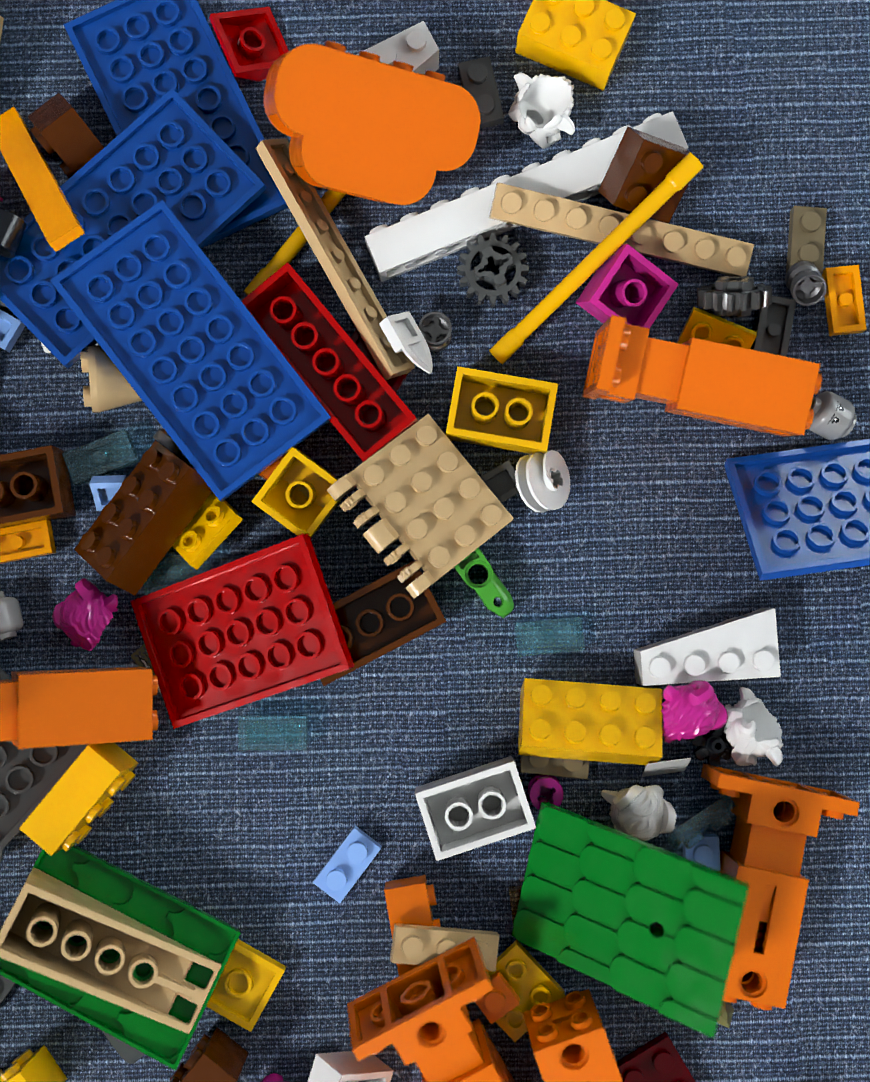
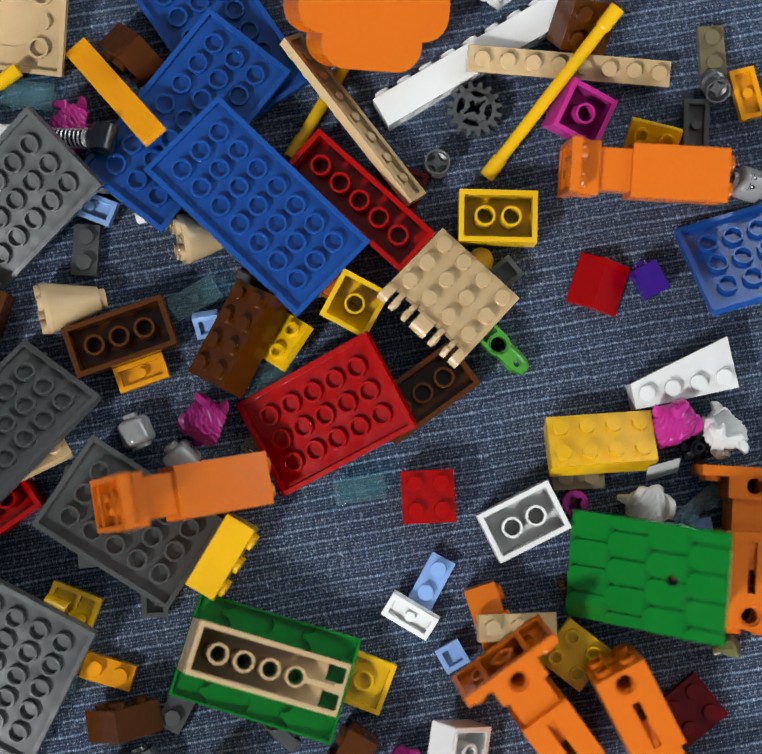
camera: 10 degrees left, 0 degrees up
(50, 654) = (180, 453): none -> light grey head
(312, 906) = (410, 615): none -> white plate
(357, 756) = (428, 496): none -> red brick
(358, 967) = (452, 655): none -> light blue plate
(406, 337) = (417, 172): white plate -> none
(476, 458) = (483, 256): none -> yellow plate
(499, 1000) = (560, 658): orange plate -> none
(543, 481) = (537, 266): white piece -> none
(549, 636) = (559, 384): clear light blue plate -> none
(618, 515) = (597, 284): none -> red slope
(684, 518) = (648, 279): none -> dark purple brick
(734, 296) = (661, 104): dark grey gear -> none

